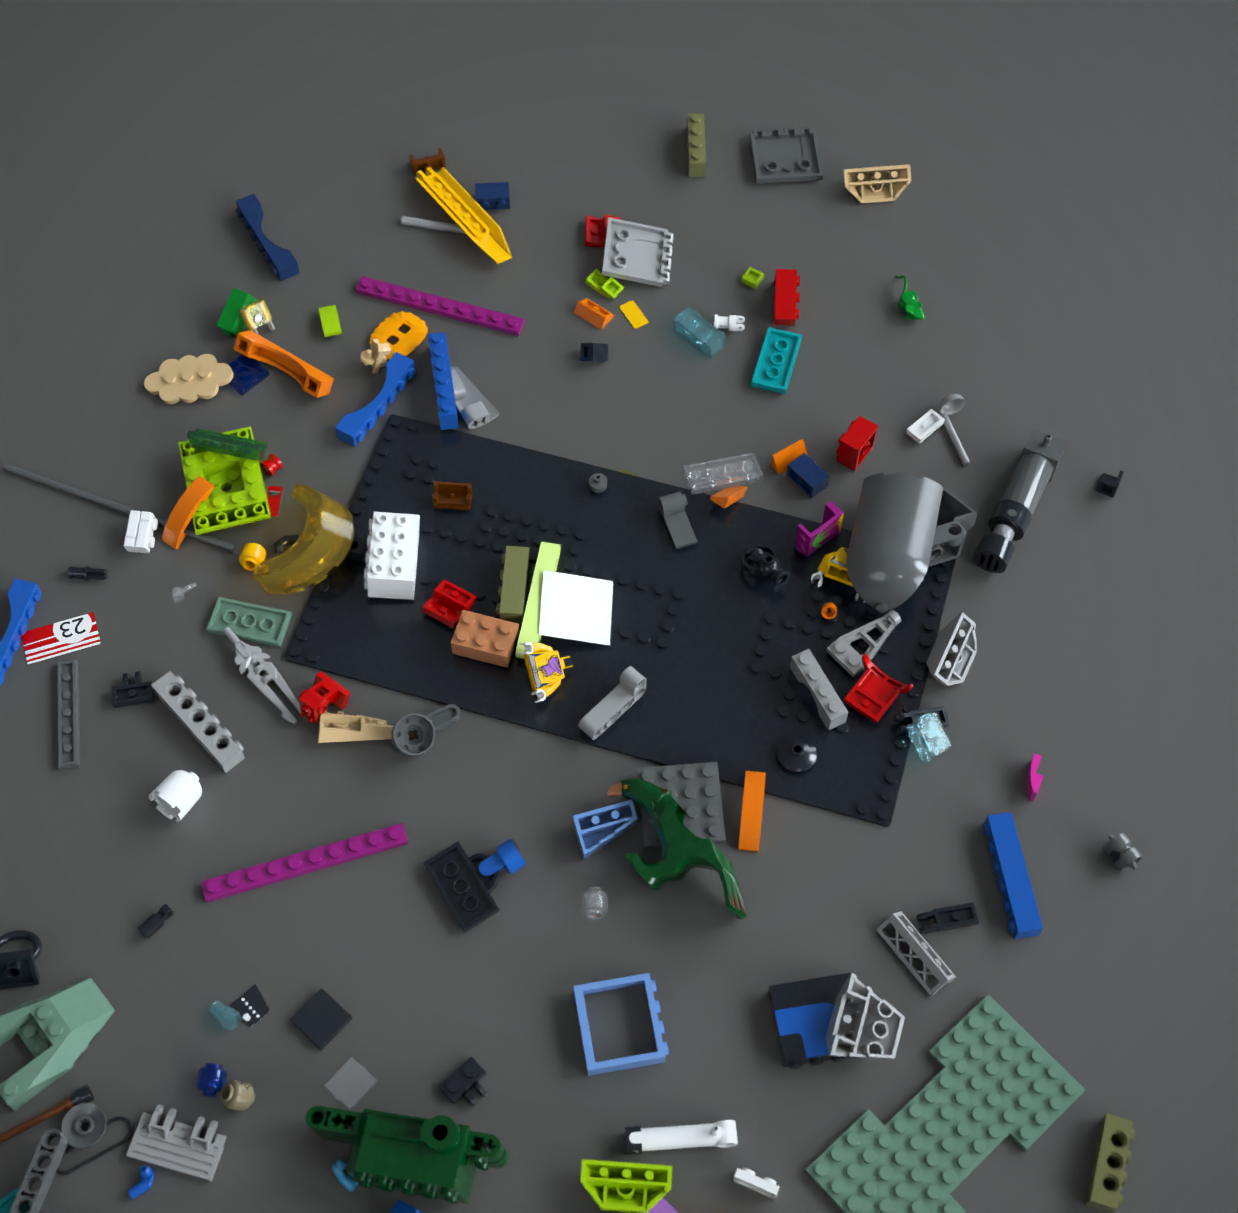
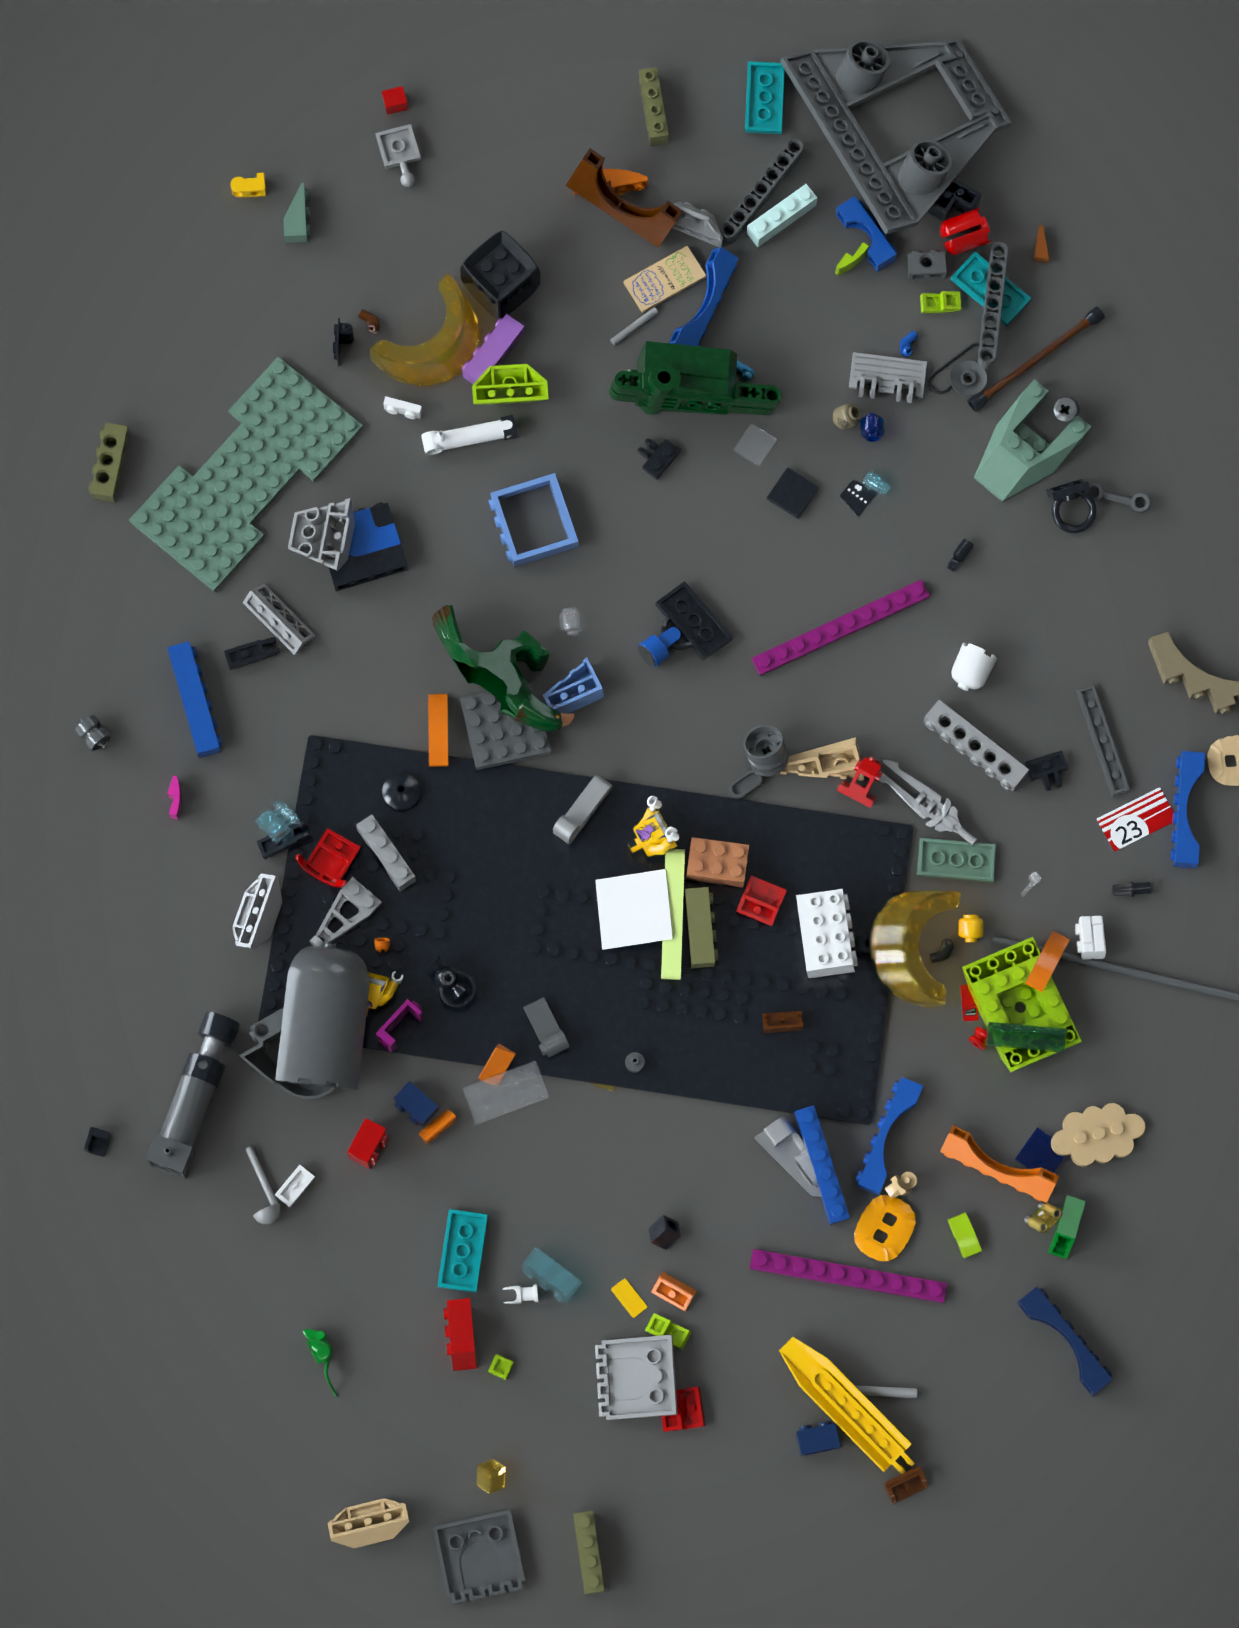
camera: 170 degrees right, 15 degrees up
(770, 203) = (490, 1476): none -> clear yellow panel

